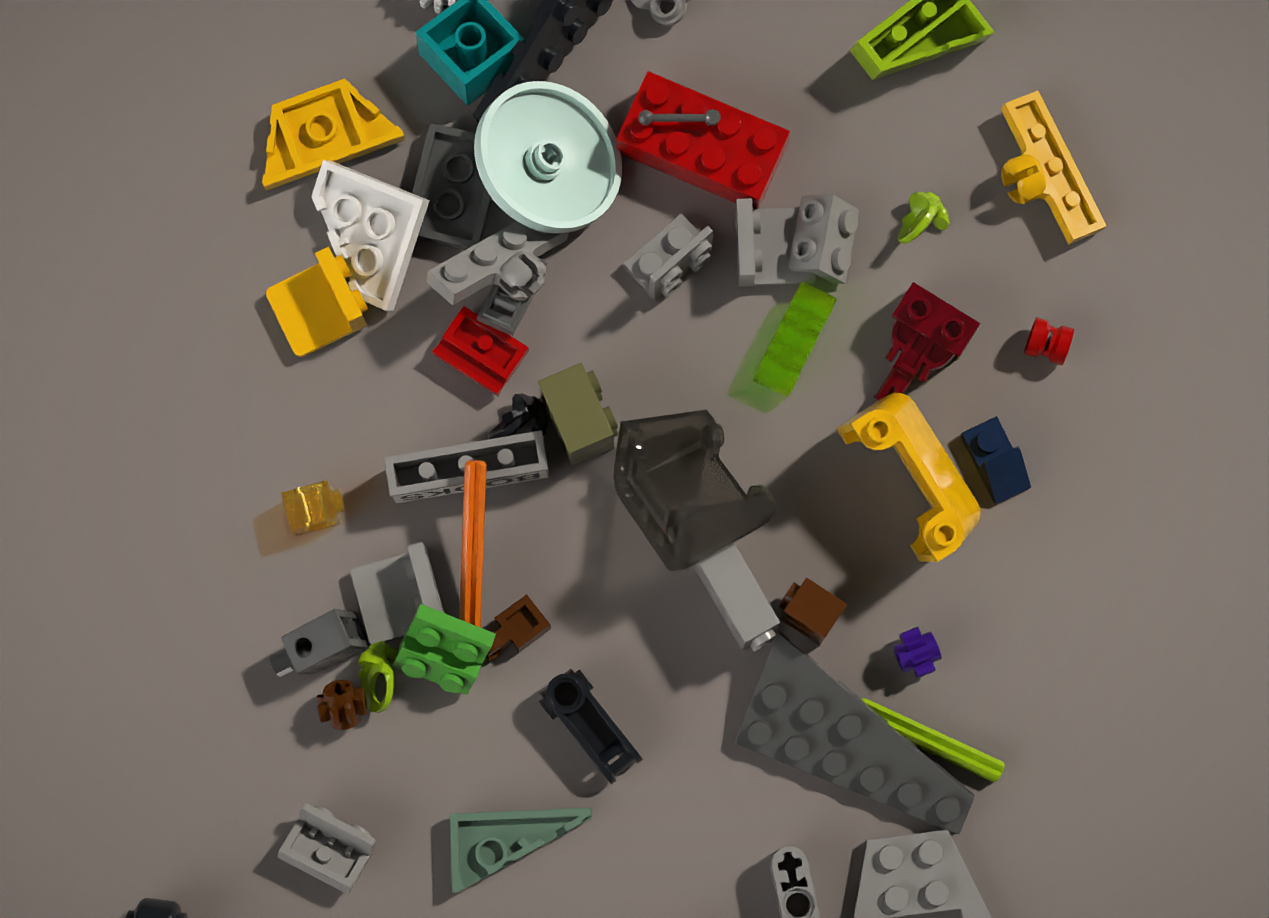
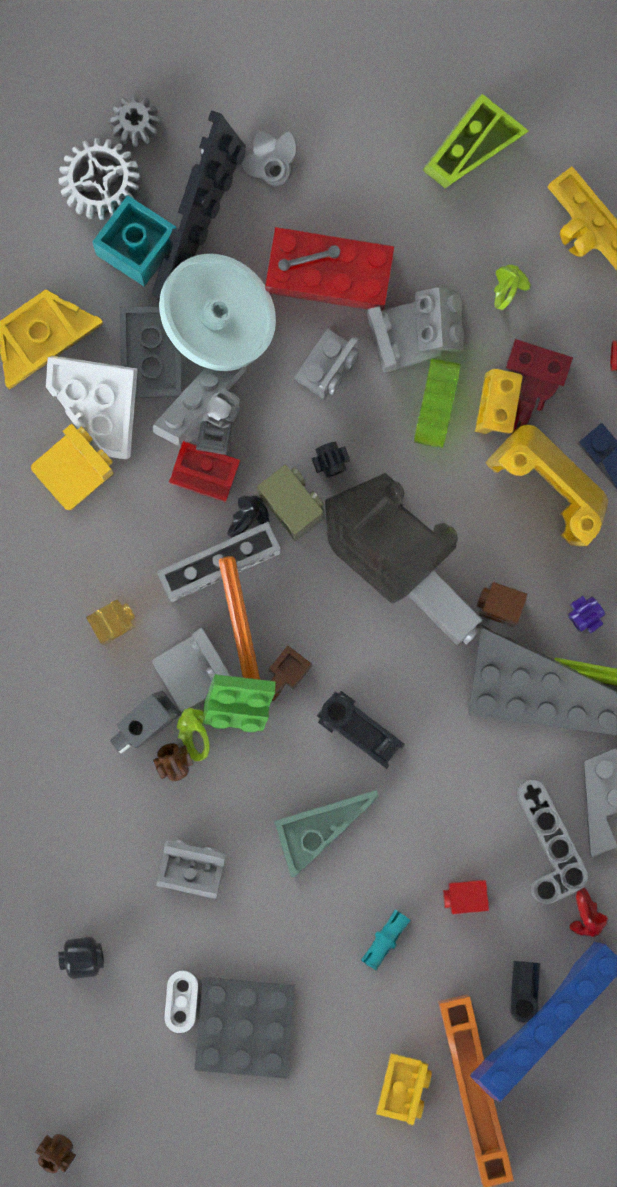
camera: 15 degrees left, 5 degrees up
(642, 375) = (330, 459): none -> black gear
(872, 356) = (498, 401): none -> yellow bracket

